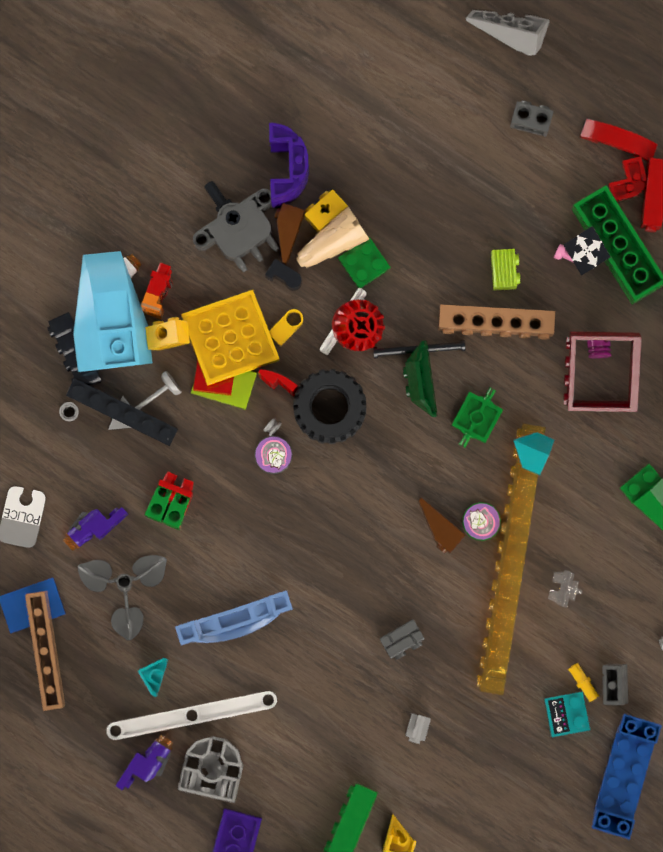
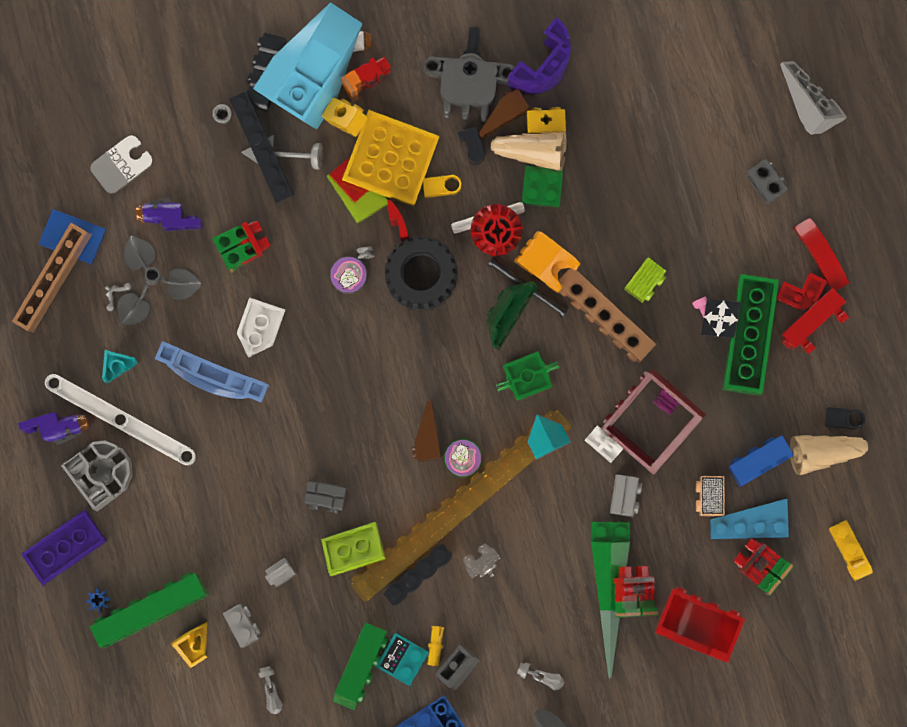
camera: 45 degrees right, 0 degrees up
(109, 635) = (110, 307): none -> light grey piece
(238, 552) = (259, 326): none -> white tile
(416, 316) = (545, 260): none -> light orange piece
(423, 794) = (241, 625): none -> light grey brick
(458, 661) = (353, 549): none -> lime tile
(499, 832) = (274, 704): none -> light grey piece
(525, 633) = (422, 571): none -> black brick
(541, 746) = (359, 666): none -> green wedge
(580, 420) = (603, 444): none -> white hips
(628, 446) = (624, 496): none -> light grey brick

